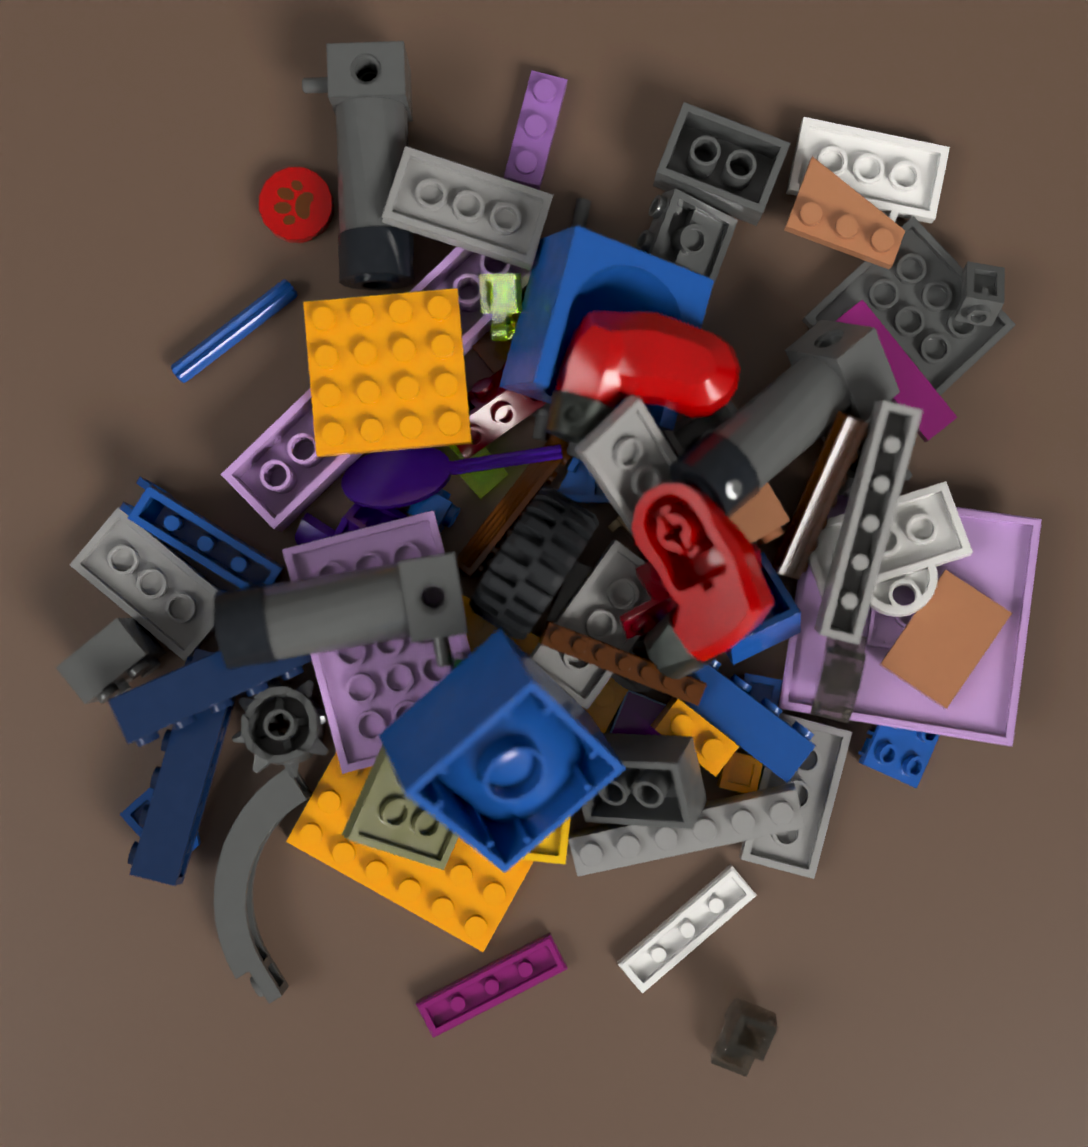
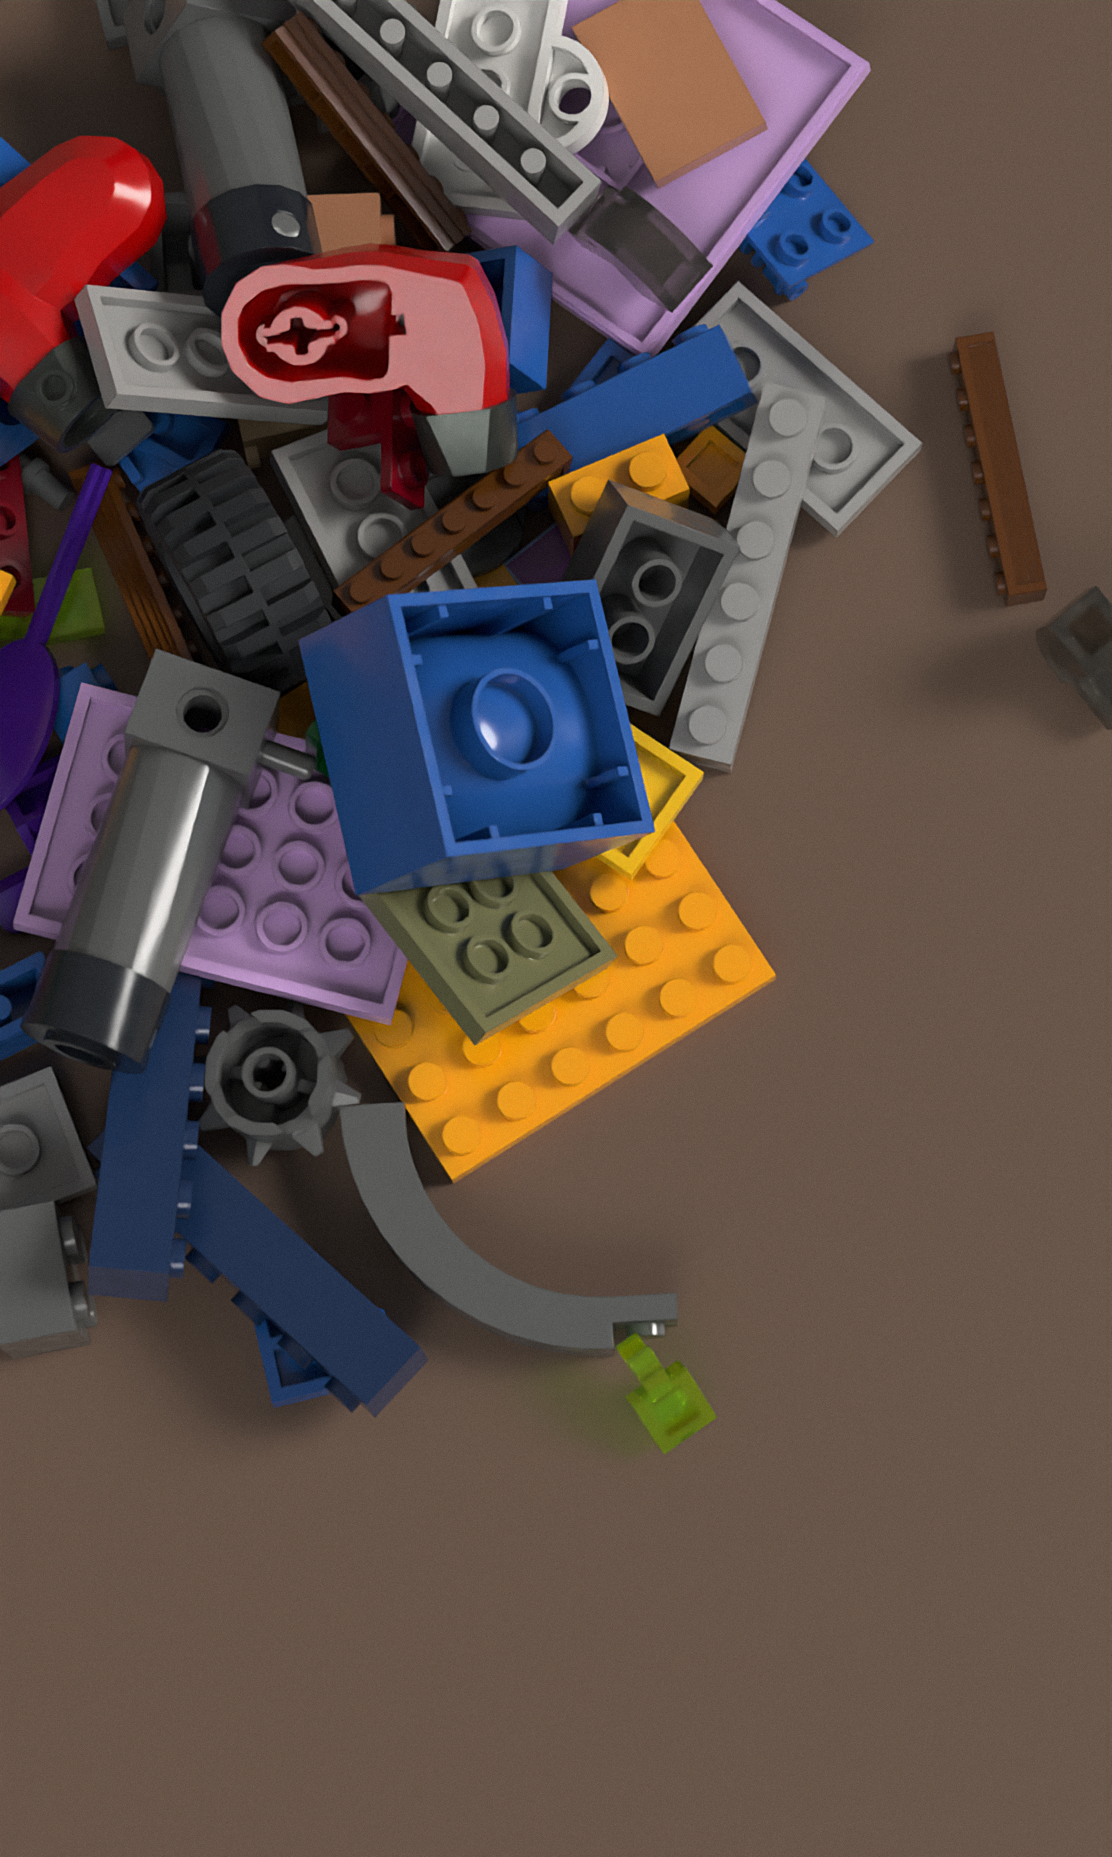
camera: 60 degrees left, 10 degrees down
(227, 1015) = (668, 1398): none -> clear neon green plate
(491, 985) = (833, 993): magenta tile -> none
(686, 928) = (901, 667): white tile -> none
(823, 924) = (997, 469): none -> reddish brown piece

